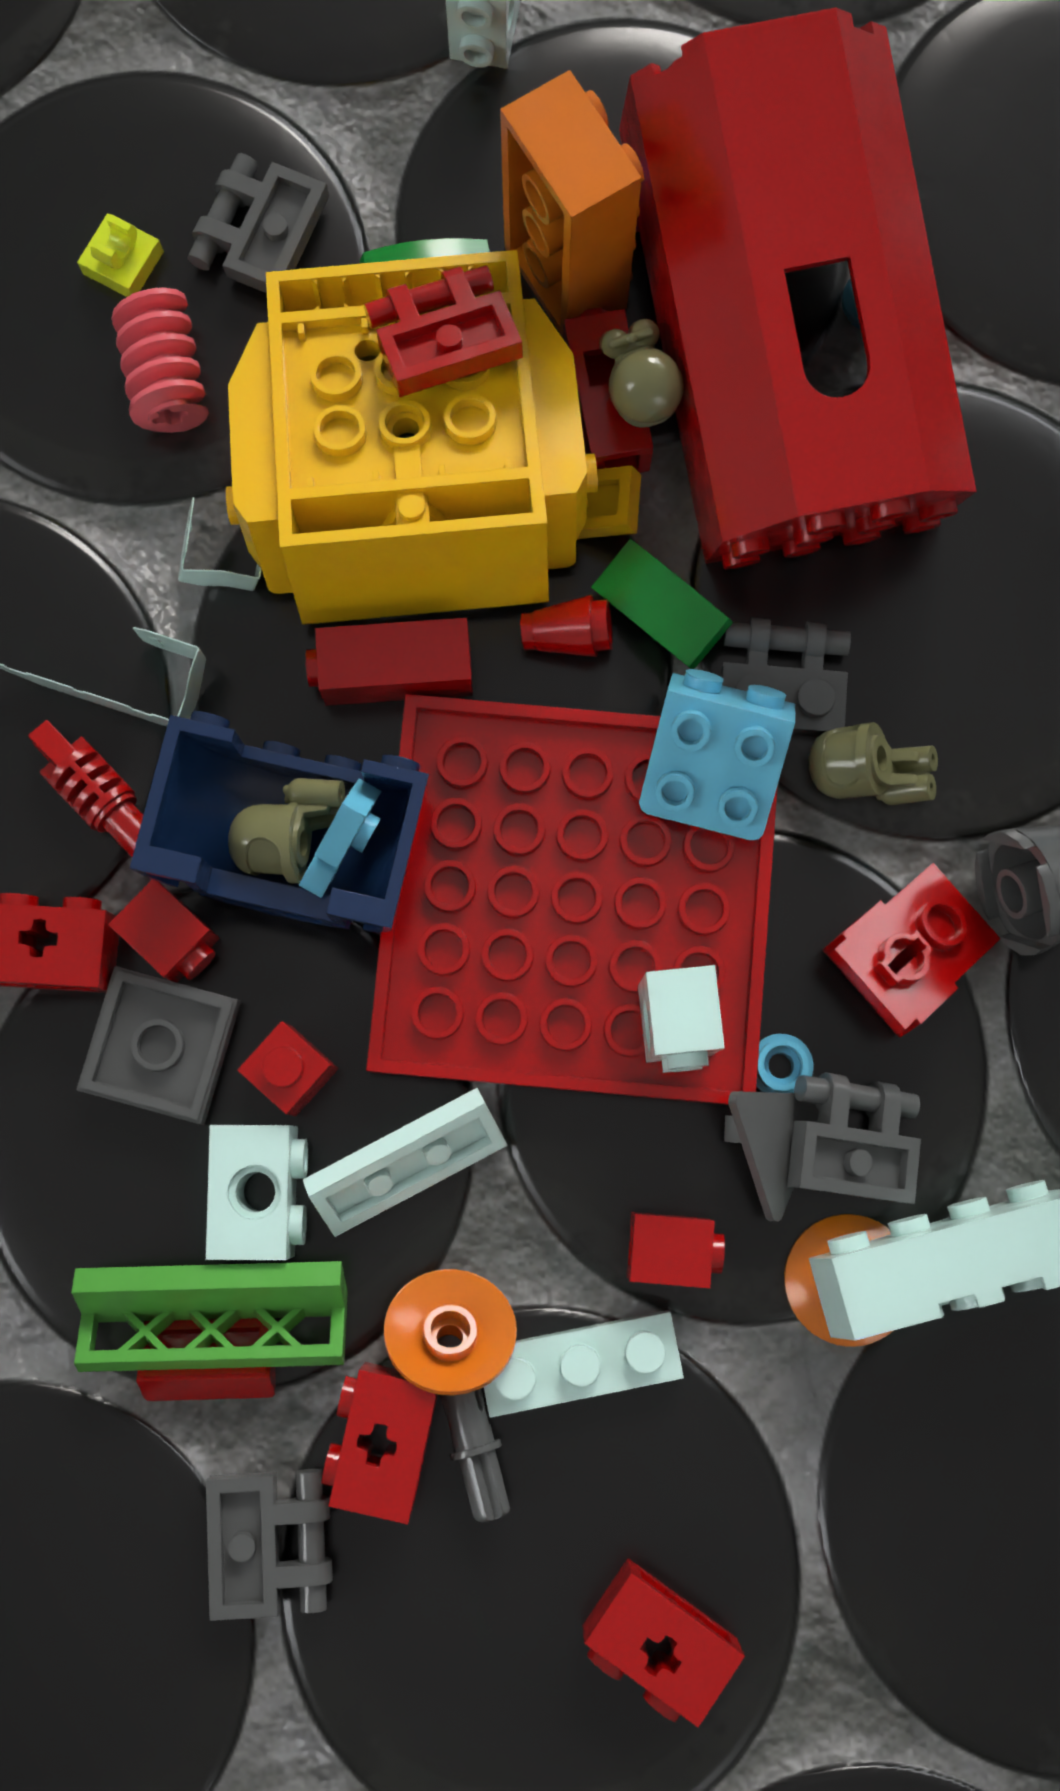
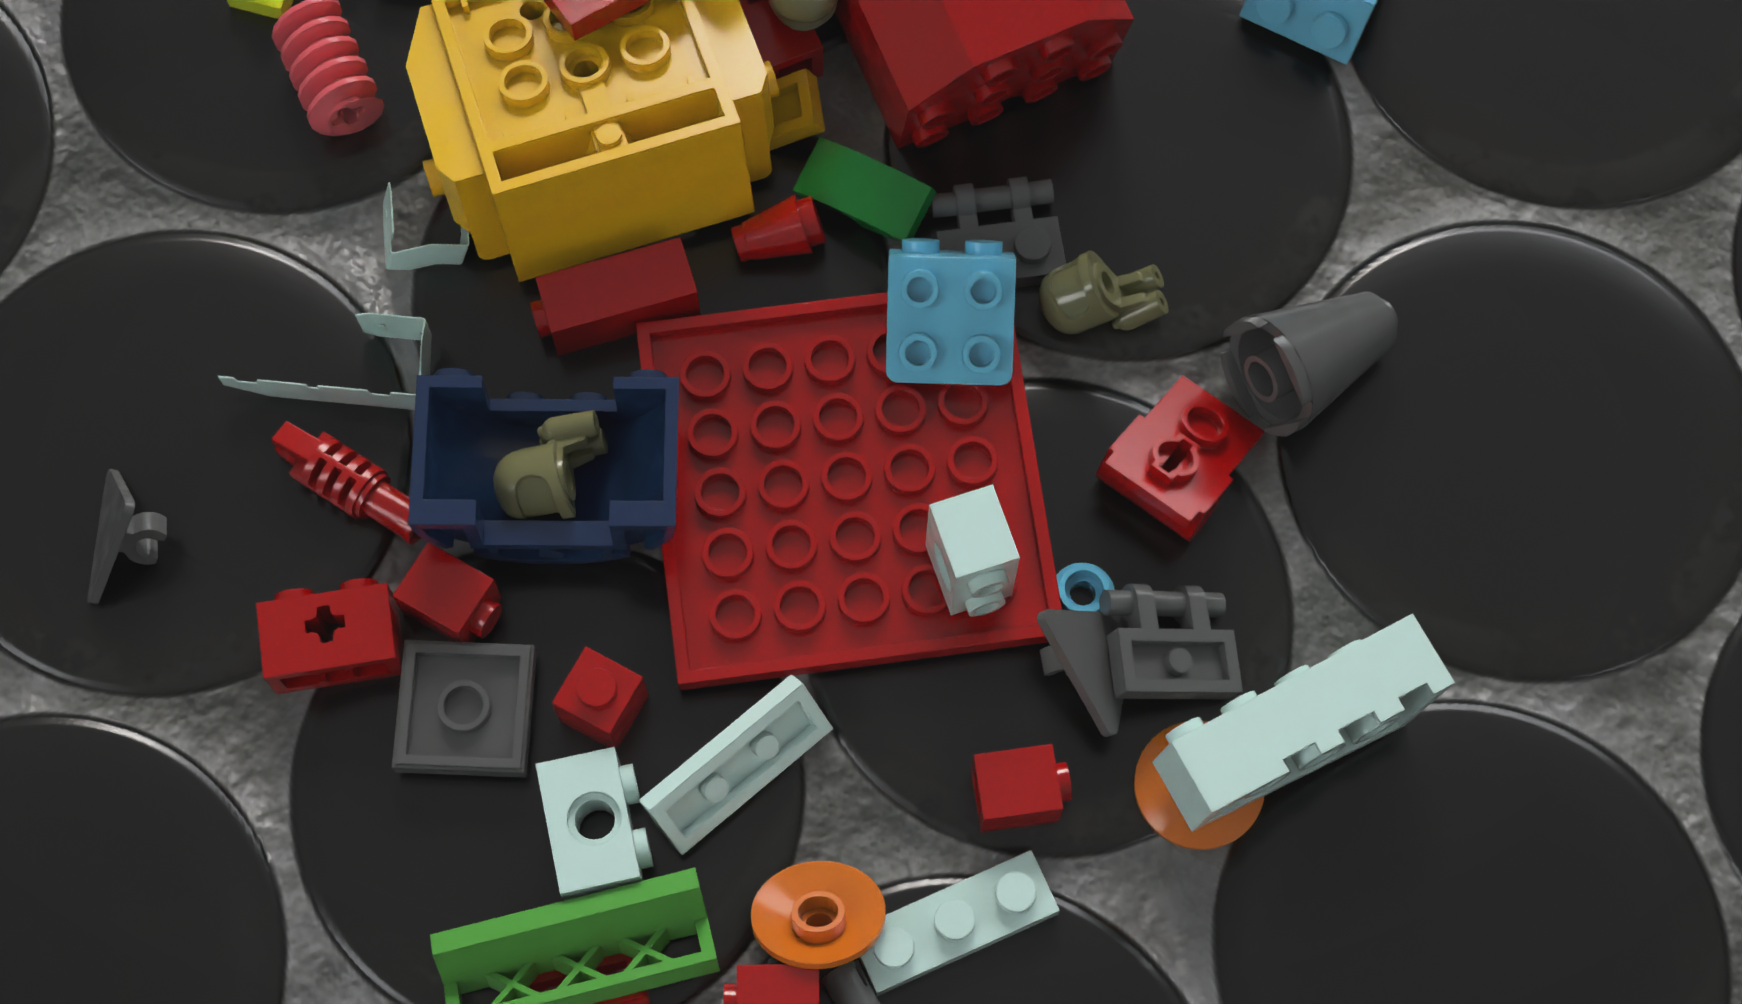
camera: 15 degrees left, 10 degrees down
(349, 828) = (613, 449): medium azure plate -> none

